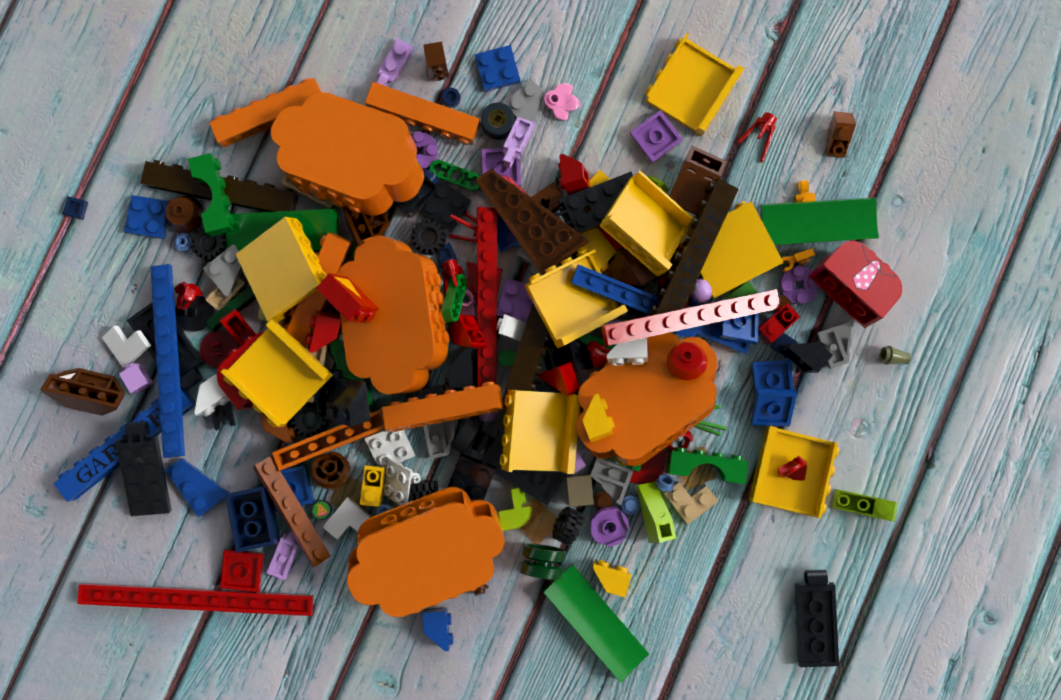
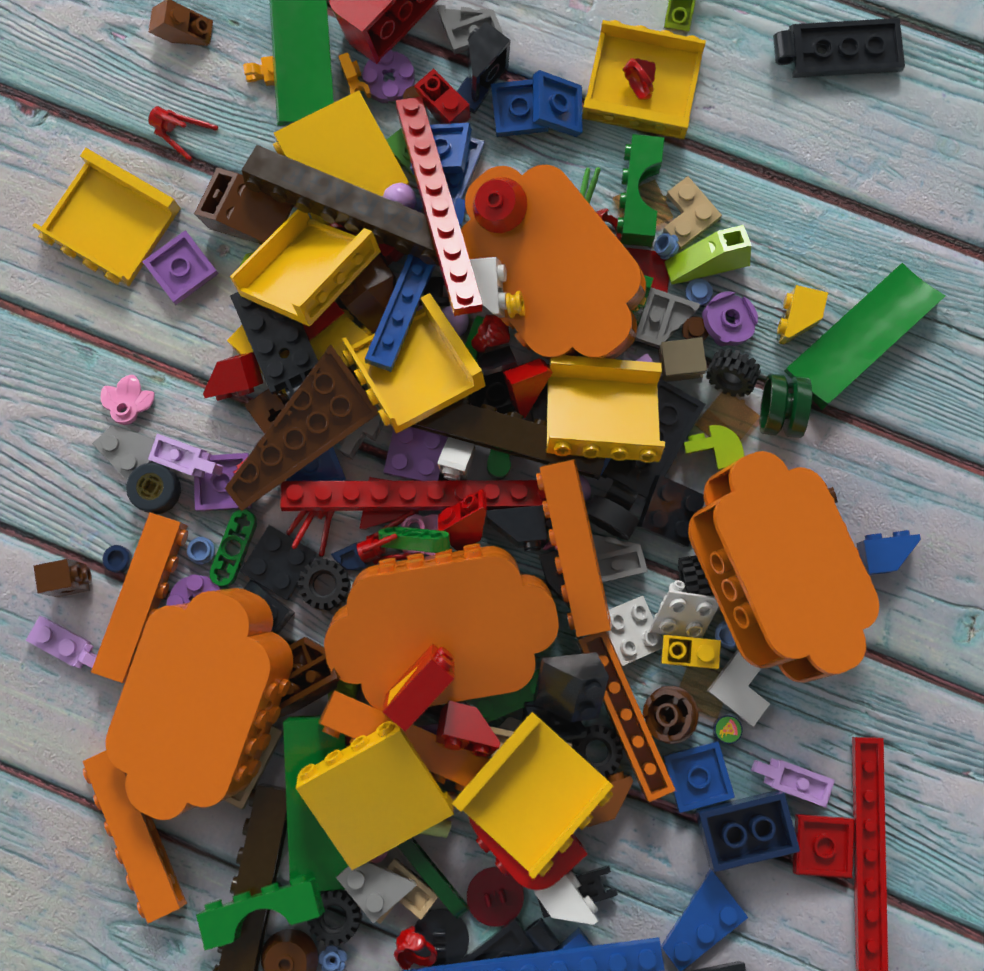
camera: 85 degrees left, 5 degrees down
(237, 326) = (463, 865): red slope -> none
(291, 511) = (733, 771): dark orange plate -> none
(430, 177) = (237, 580): dark blue tile -> none
(454, 153) = (201, 550): none -> medium blue plate
(497, 68) = (75, 492): blue plate -> none
(596, 421) = (589, 324): yellow slope -> none
(615, 370) = (515, 304): none -> yellow bush

